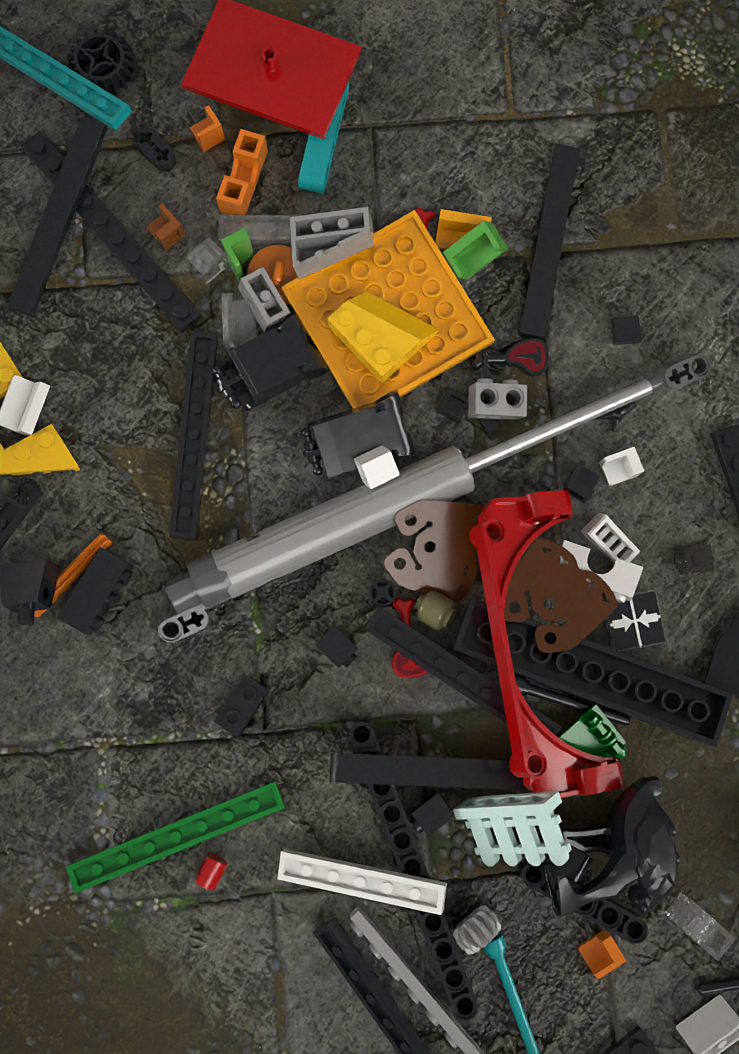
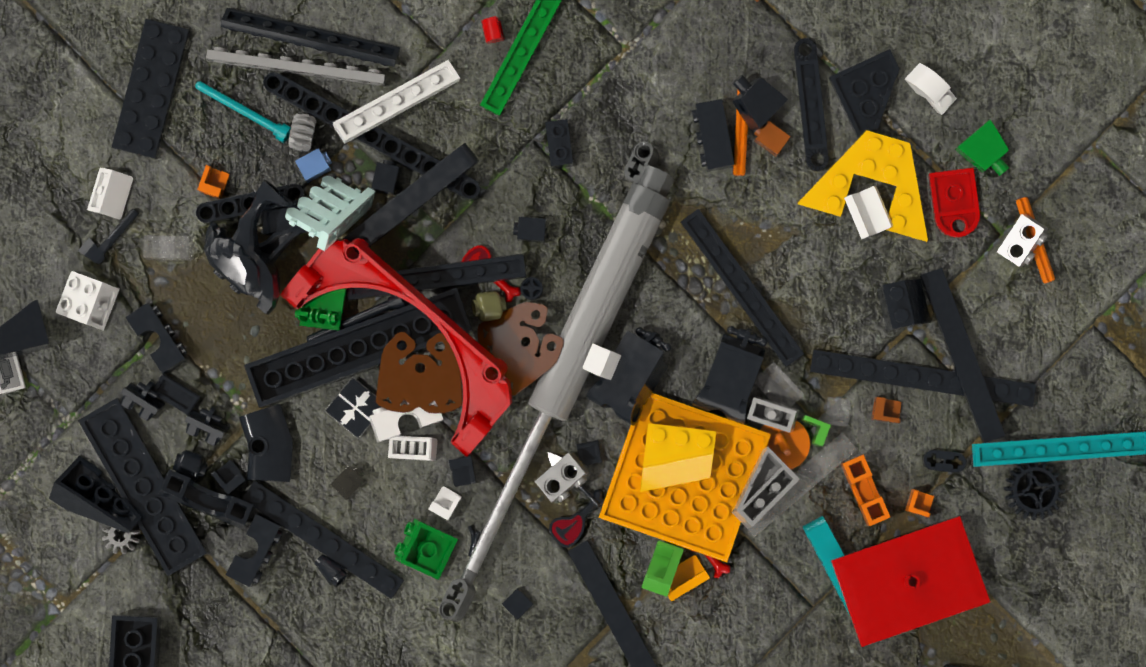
camera: 150 degrees right, 5 degrees up
(47, 543) = (771, 138): none -> dark orange brick
(71, 300) = (903, 304): none -> black slope
(490, 886) = (314, 165): none -> medium blue brick
(673, 441) = (425, 548): none -> green plate

